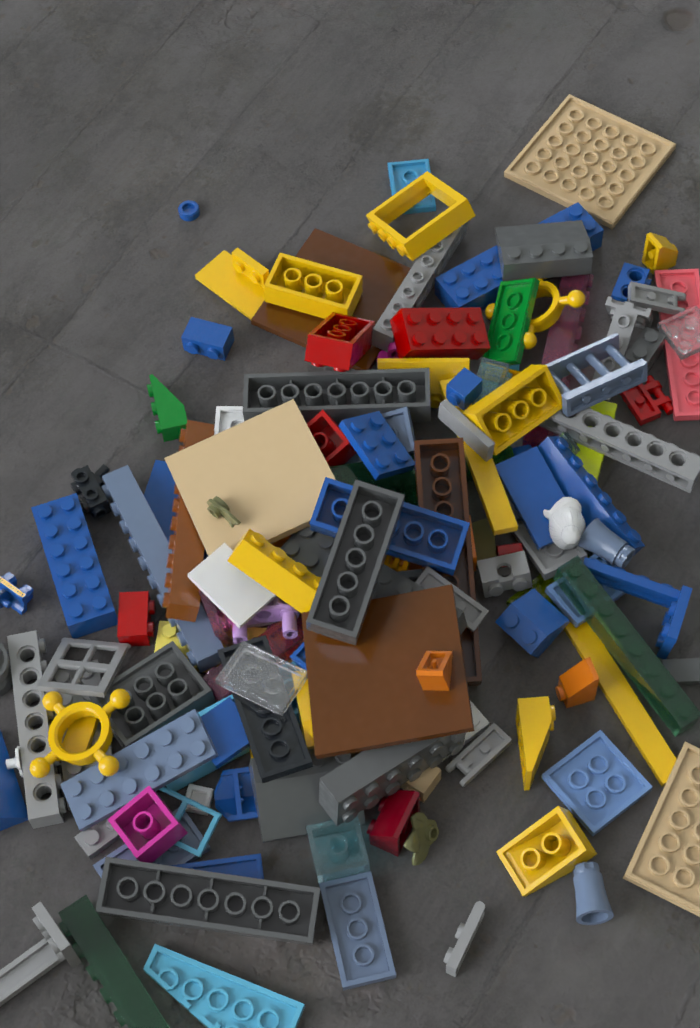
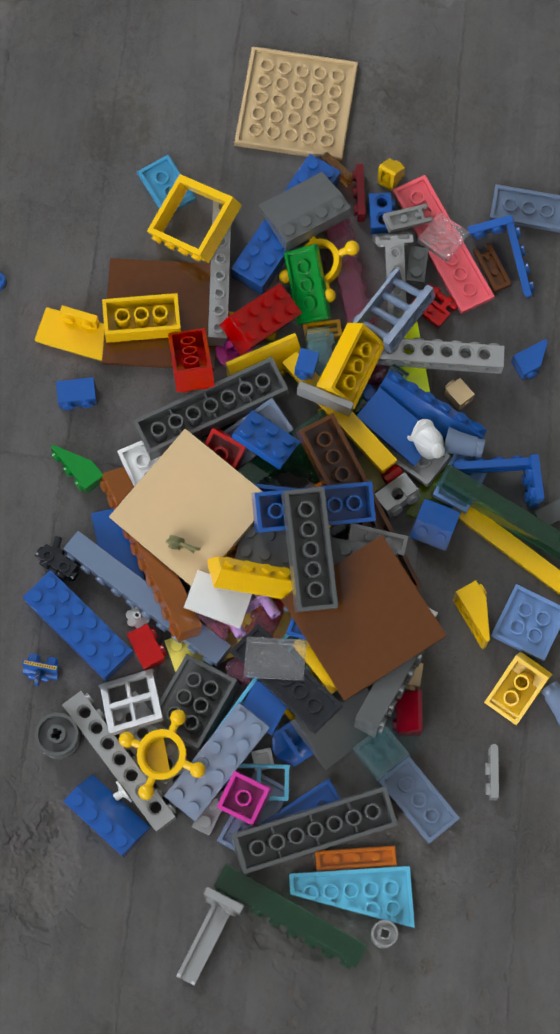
camera: 30 degrees left, 15 degrees up
(142, 584) = (134, 621): none -> white plant
(246, 965) = (355, 858): none -> orange tile
(423, 835) = (432, 712): olive plate -> none
(435, 670) = (402, 604): orange slope -> none
(480, 753) = (439, 650): light grey hinge -> none
(578, 684) = (487, 557): orange slope -> none
(609, 239) = (346, 176): none -> clear orange tile
(615, 261) = (358, 193): none -> dark red plate
(631, 498) = (458, 393): none -> tan brick

